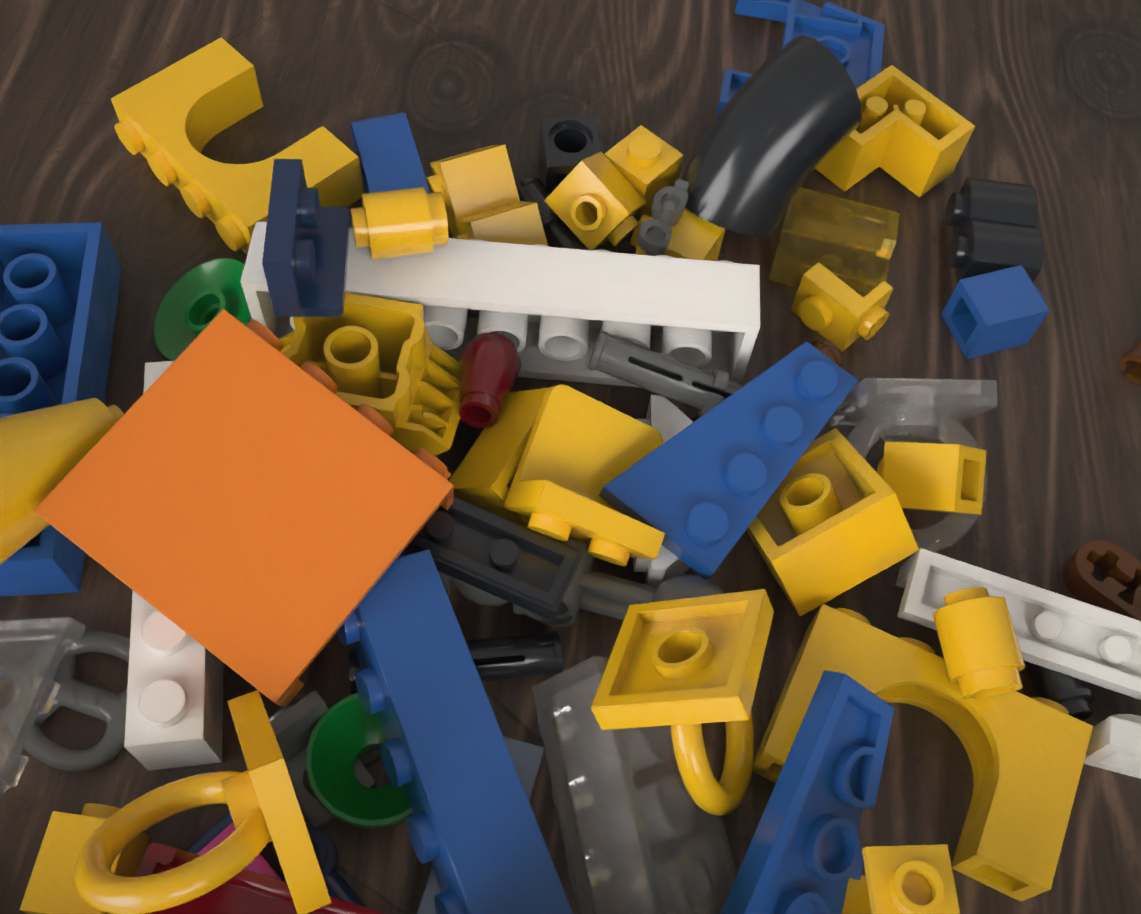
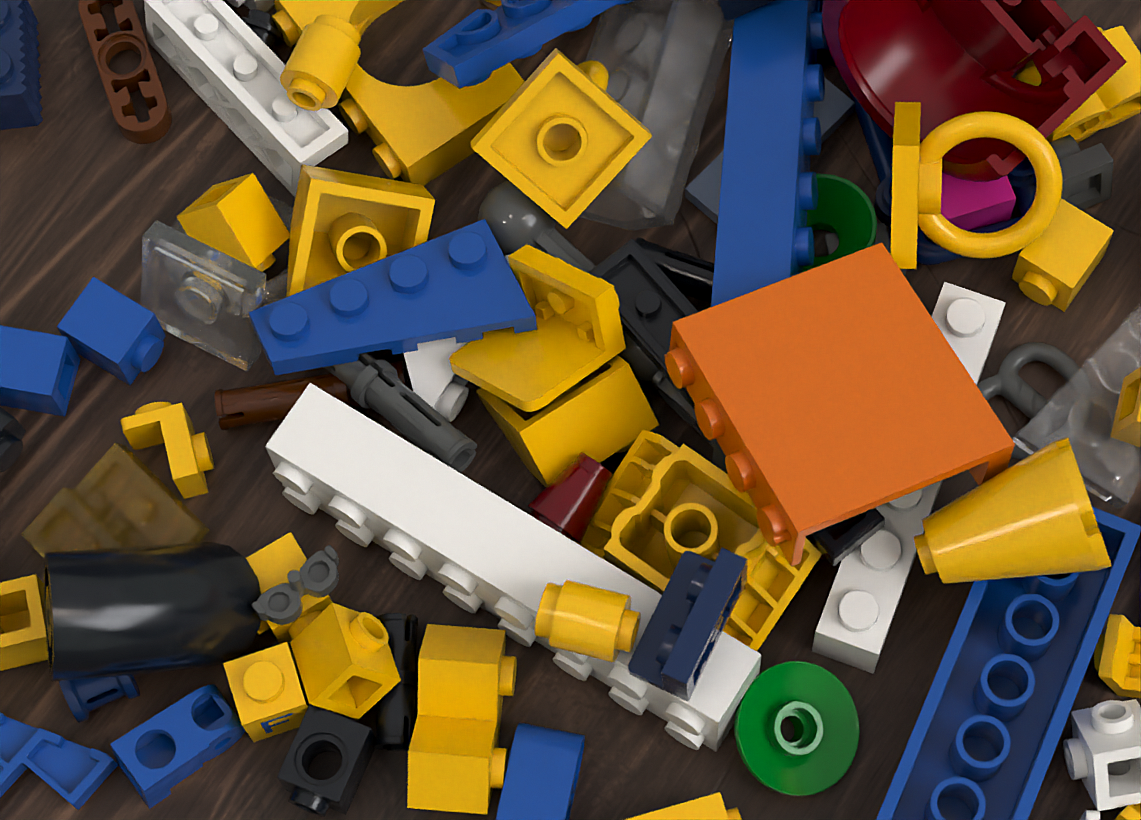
camera: 140 degrees left, 10 degrees up
(685, 125) = (177, 742): none -> blue leg
(960, 355) = (113, 331): none -> blue brick

